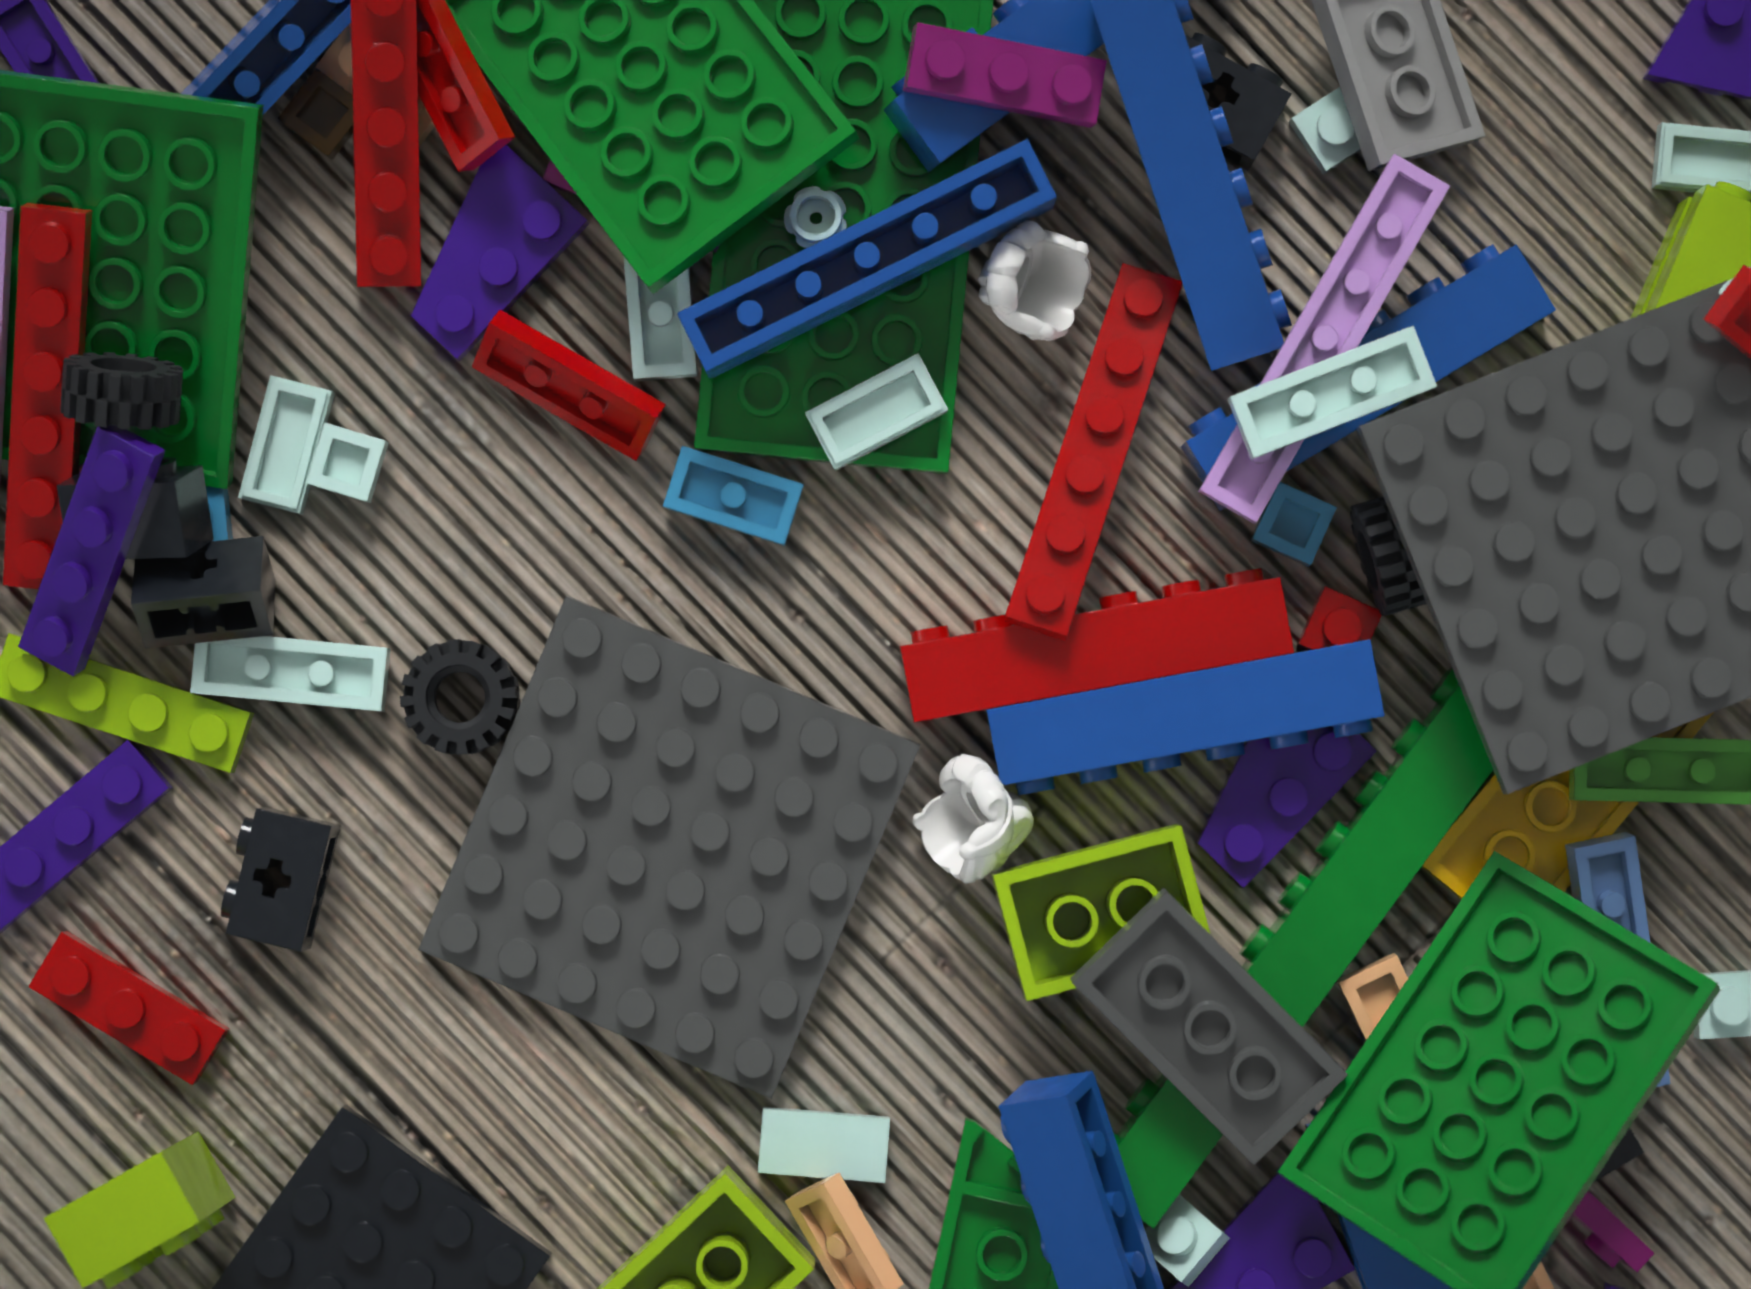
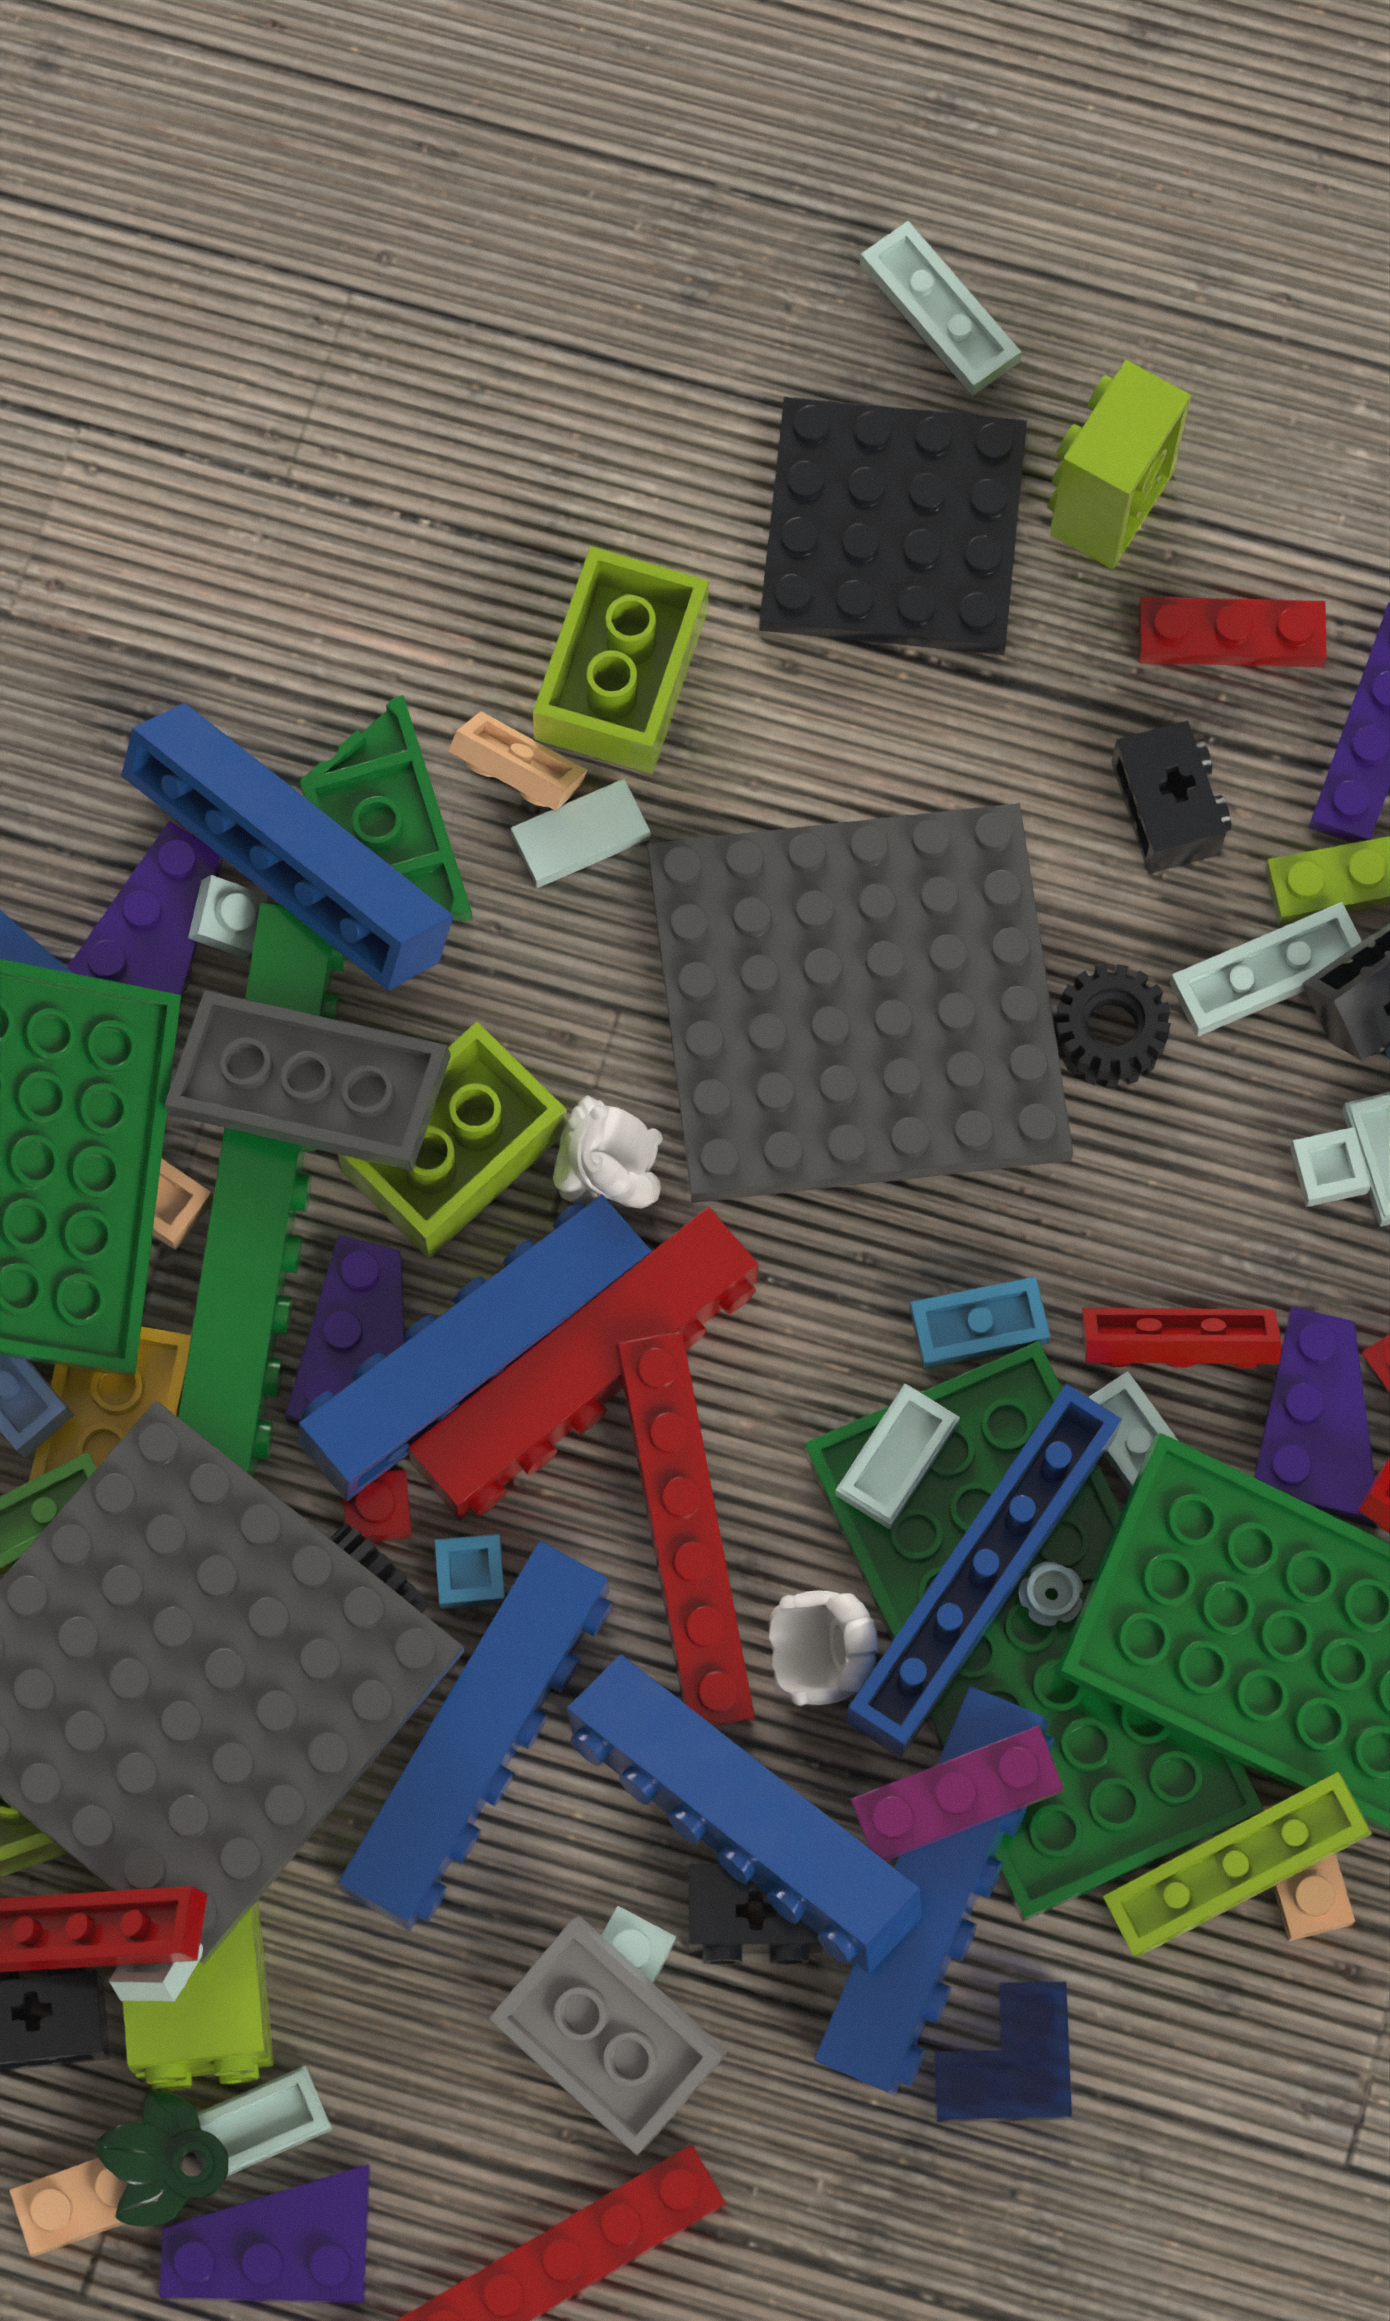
camera: 150 degrees right, 15 degrees down
(1332, 392) = (503, 1670): light aqua plate -> none
(1334, 318) = (536, 1730): lavender plate -> none

